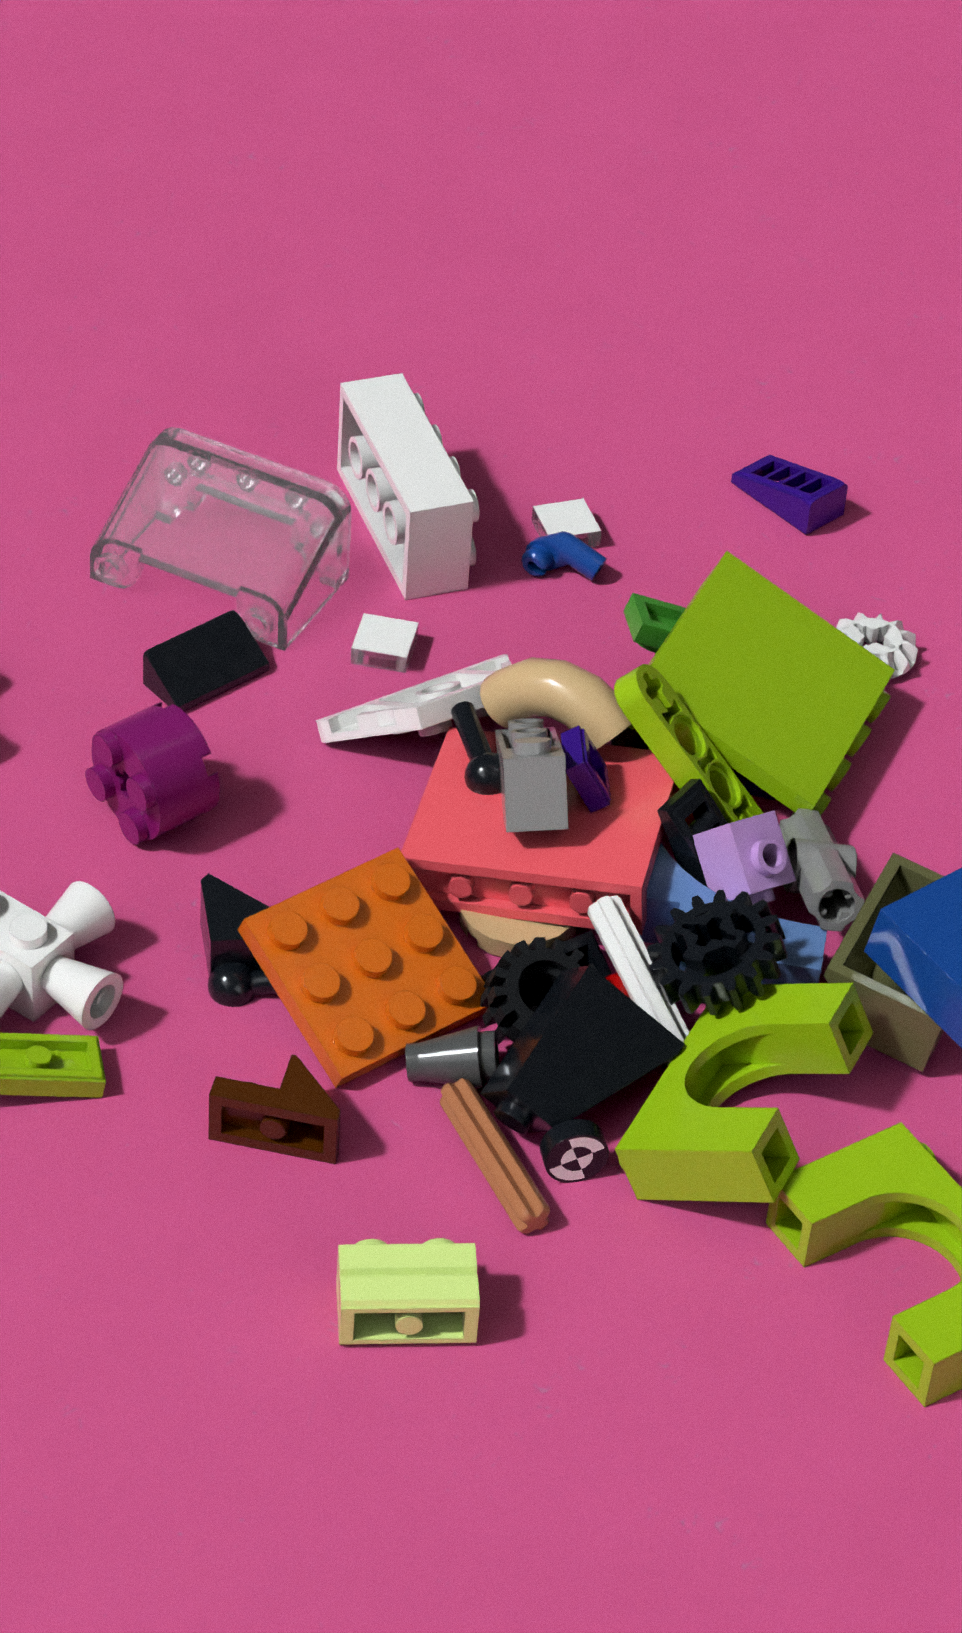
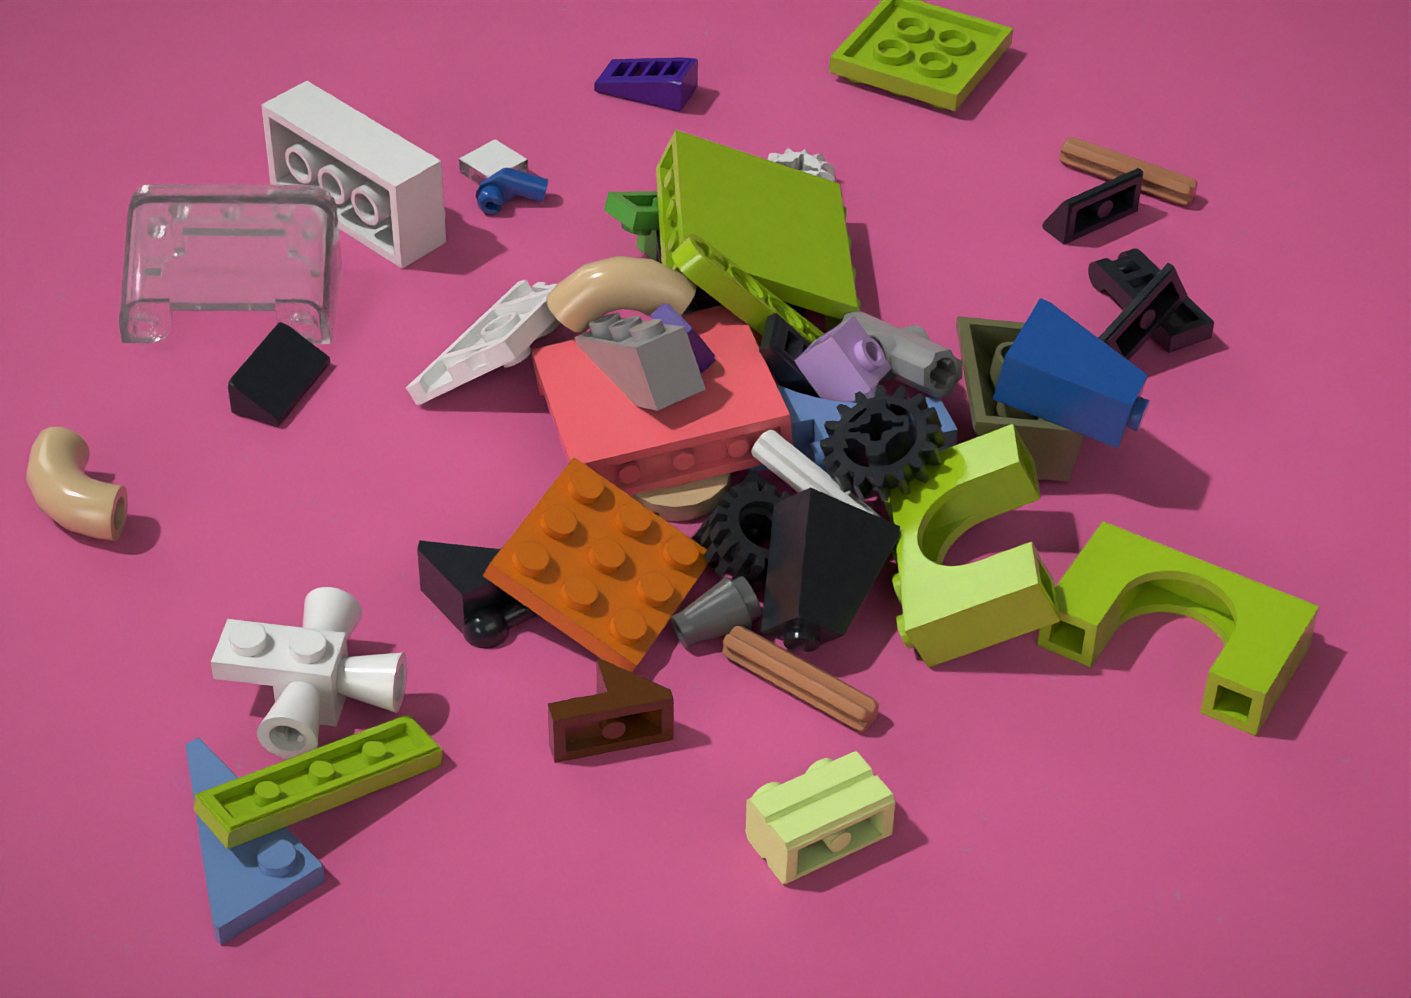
camera: 25 degrees left, 0 degrees up
(152, 772) = (311, 475): magenta brick -> none
(384, 643) = (414, 307): white tile -> none
(483, 769) = (592, 370): black bar -> none
(574, 1150) = (864, 647): black tile -> none

